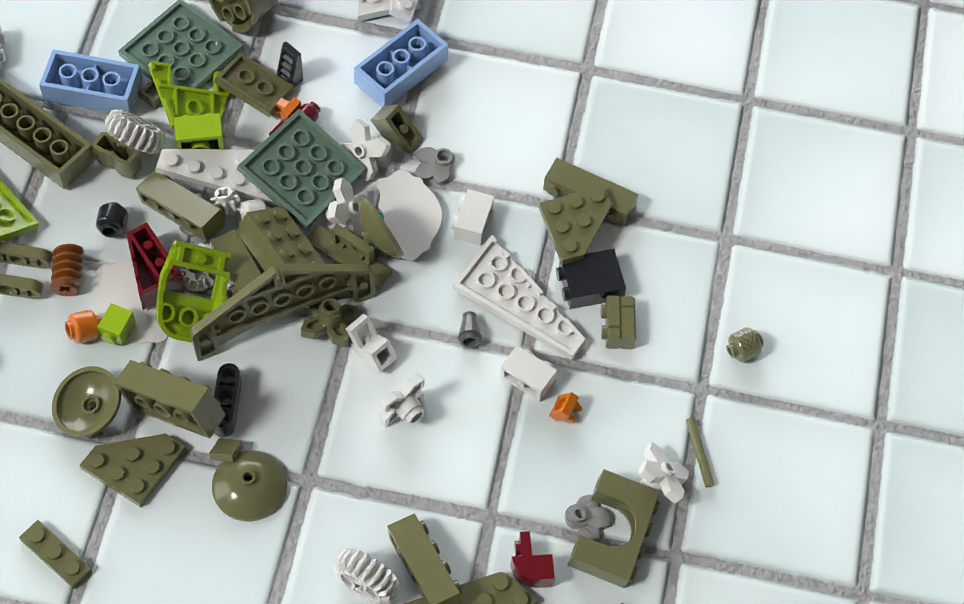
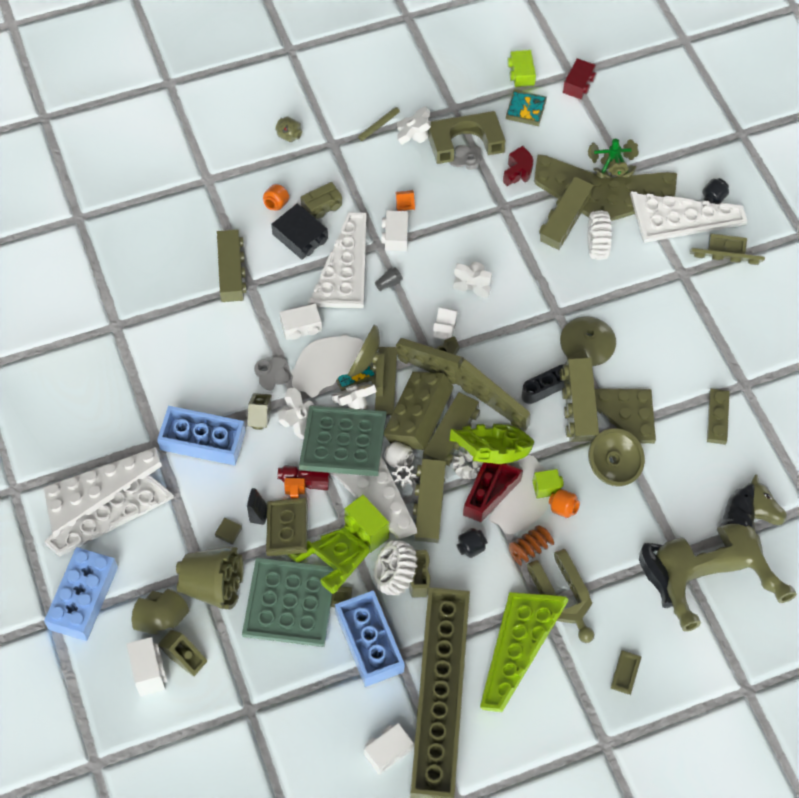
camera: 120 degrees left, 0 degrees up
(293, 39) = (228, 531): none -> olive tile
(575, 221) = (268, 252): olive plate -> none
(653, 280) = (275, 197): none -> orange head

